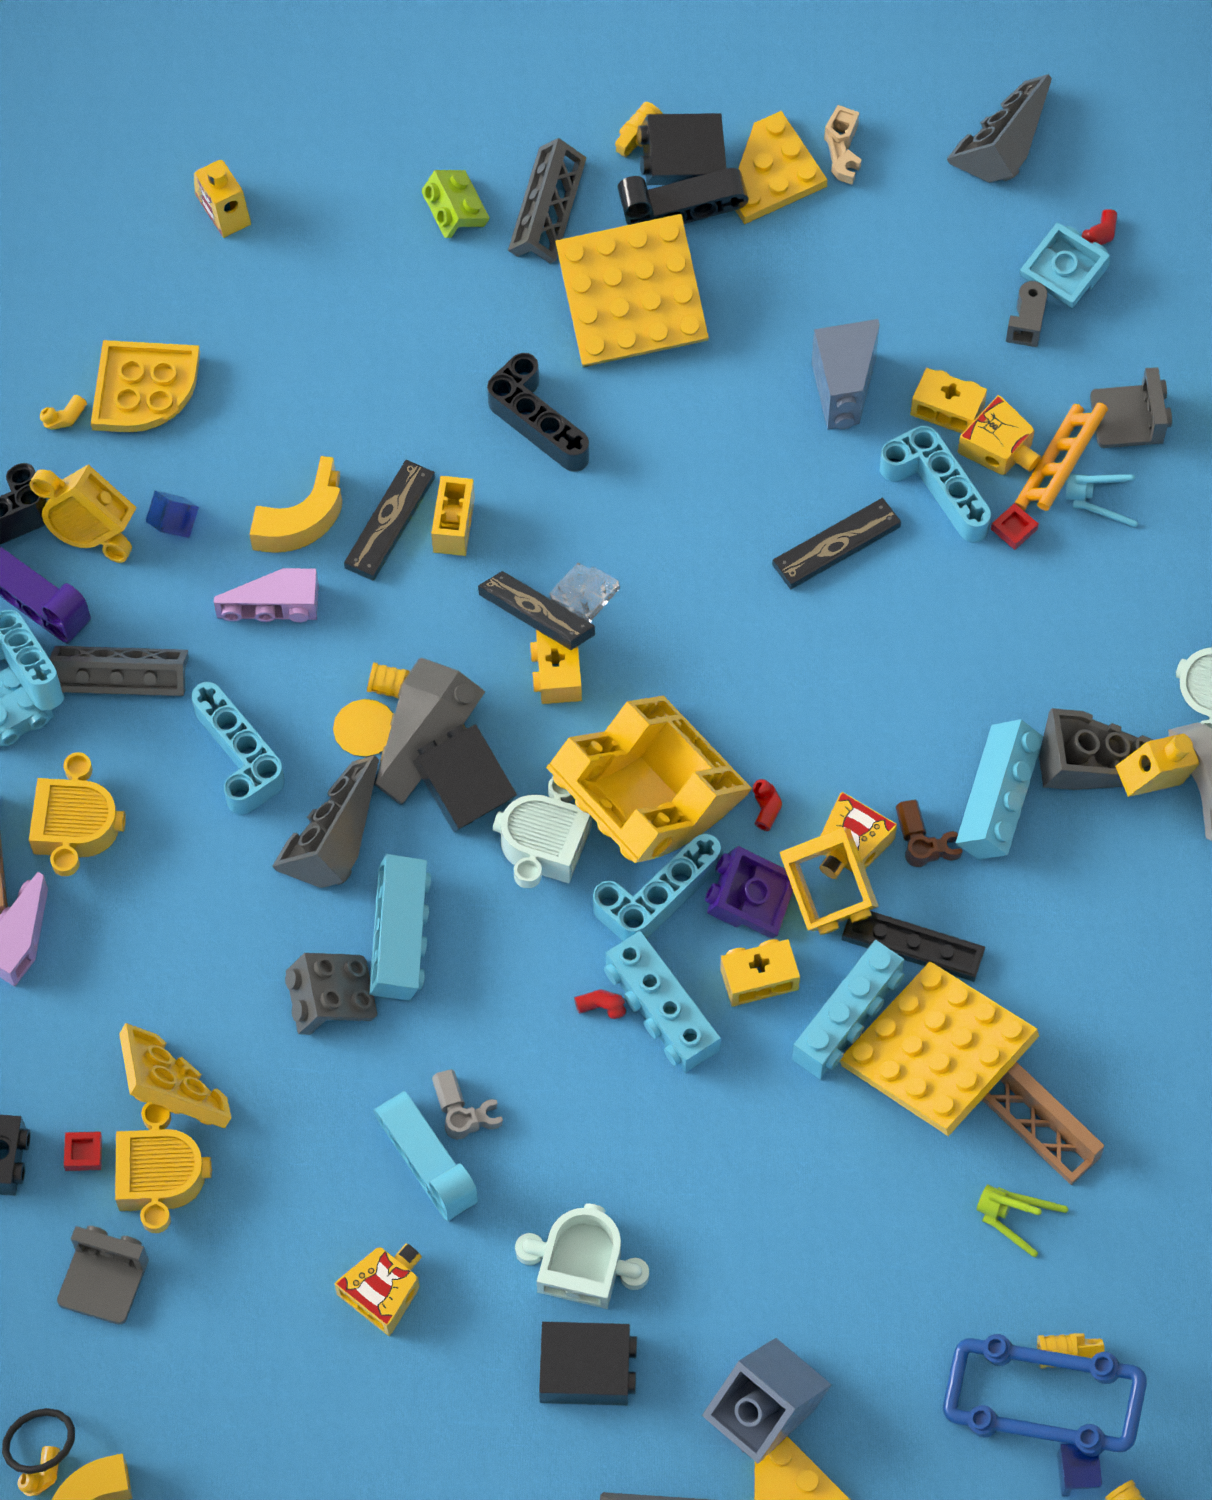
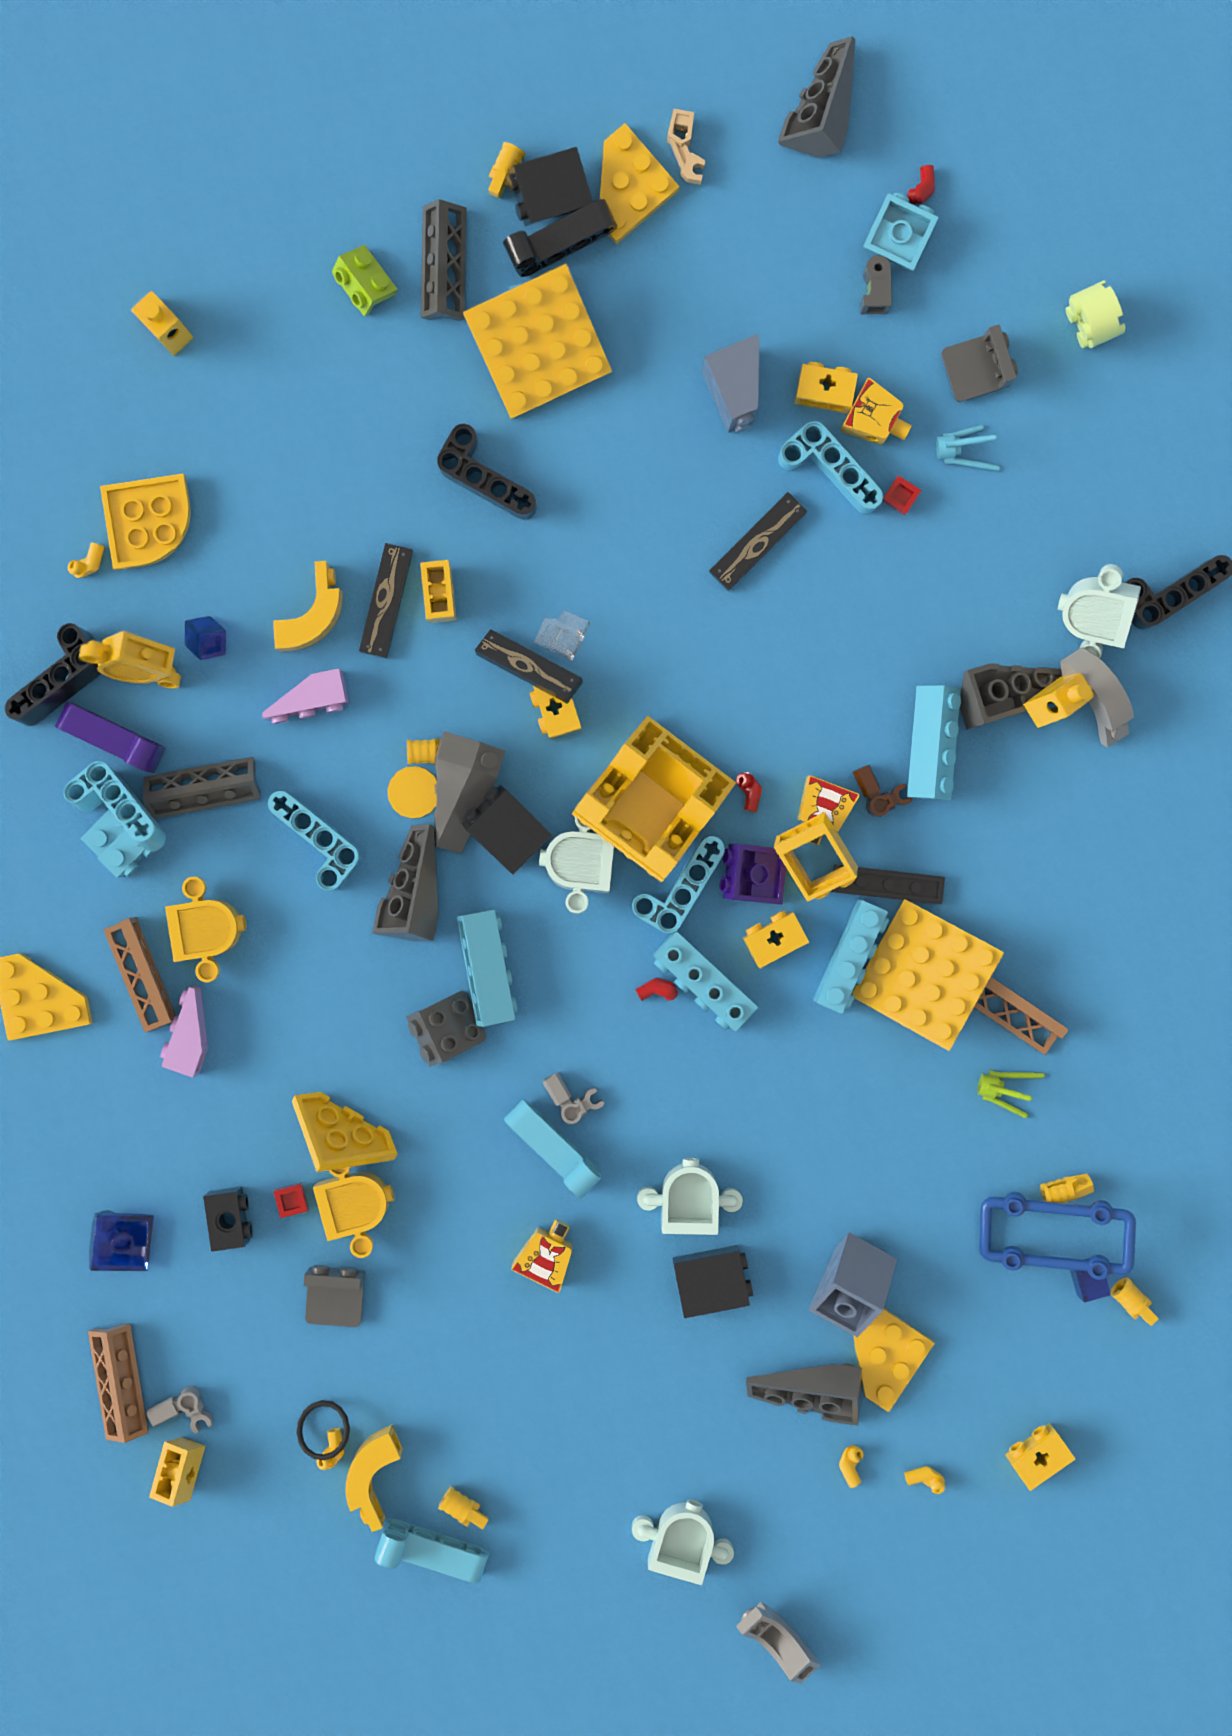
camera: 10 degrees left, 25 degrees up
(1059, 443) = (925, 407): light orange bar -> none

